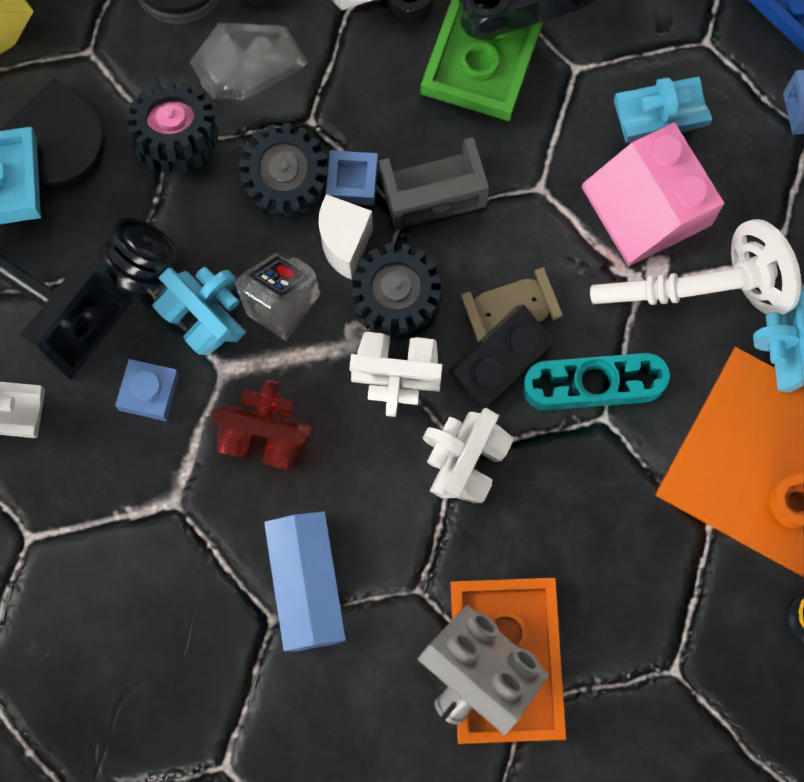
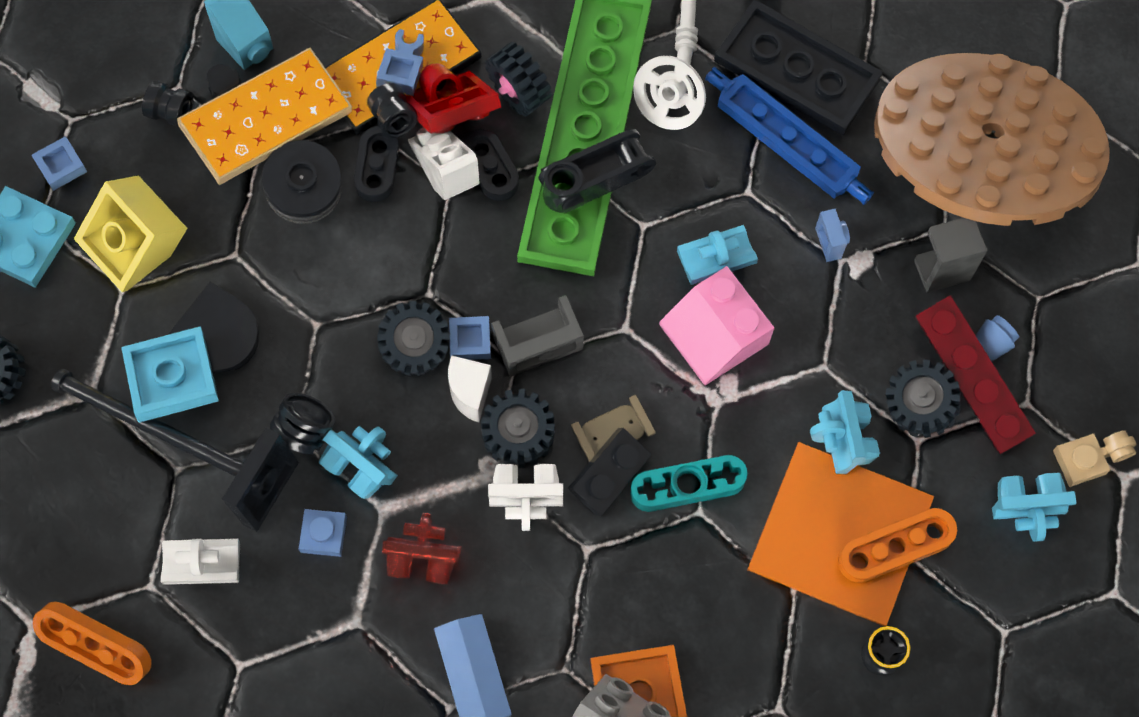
camera: 10 degrees left, 5 degrees down
(172, 127) = (316, 313): black wheel -> none
(245, 59) = (370, 249): clear slope -> none
(278, 293) = (422, 441): clear slope -> none
(464, 446) = (584, 551): white hips -> none
(746, 274) = (799, 383): white dish -> none

